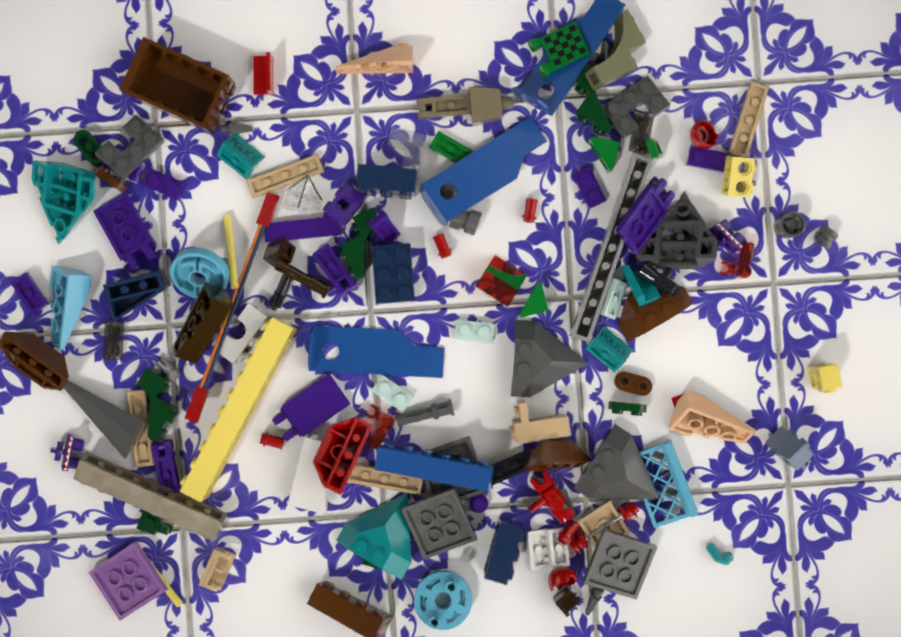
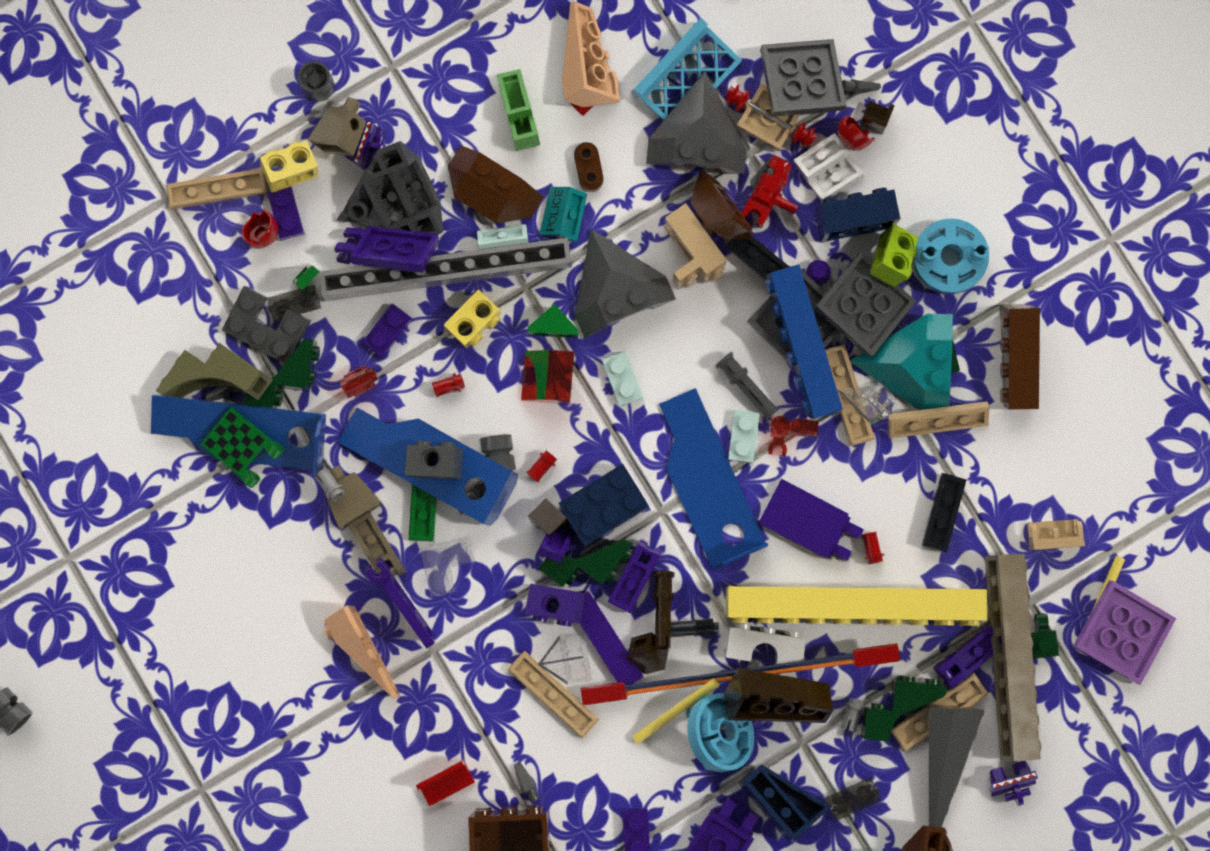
camera: 115 degrees left, 5 degrees down
(239, 155) = (556, 760): teal panel -> none
(271, 501) = (943, 512): none -> black plate
(307, 488) = (894, 479): white slope -> none
(335, 531) = (938, 419): none -> tan tile
(340, 452) = (843, 458): red wedge -> none
(371, 493) = (870, 400): none -> clear slope
(387, 181) = (499, 566): dark blue brick -> none
(397, 103) = (401, 600): none -> dark purple tile
(403, 231) = (547, 518): none -> dark brown panel
(462, 561) = (894, 255): none -> lime brick
(473, 181) = (448, 465): none -> dark grey brick
(501, 94) = (330, 485): none -> light grey pin
(563, 151) = (359, 381): none -> clear red brick
(565, 536) = (798, 153): red pin -> none
(571, 248) = (467, 315): none -> light yellow brick
(605, 151) = (336, 332): green slope -> none
(619, 407) = (616, 149): dark green plate -> none
(642, 291) = (471, 214): teal panel -> none
(659, 281) = (455, 193): black piece -> none
(698, 355) = (518, 110): none -> bright green slope
(743, 269) = (394, 108): clear red bar -> none
(746, 224) = (339, 129): none -> dark tan torso
(825, 237) = (309, 34): dark grey wheel -> none

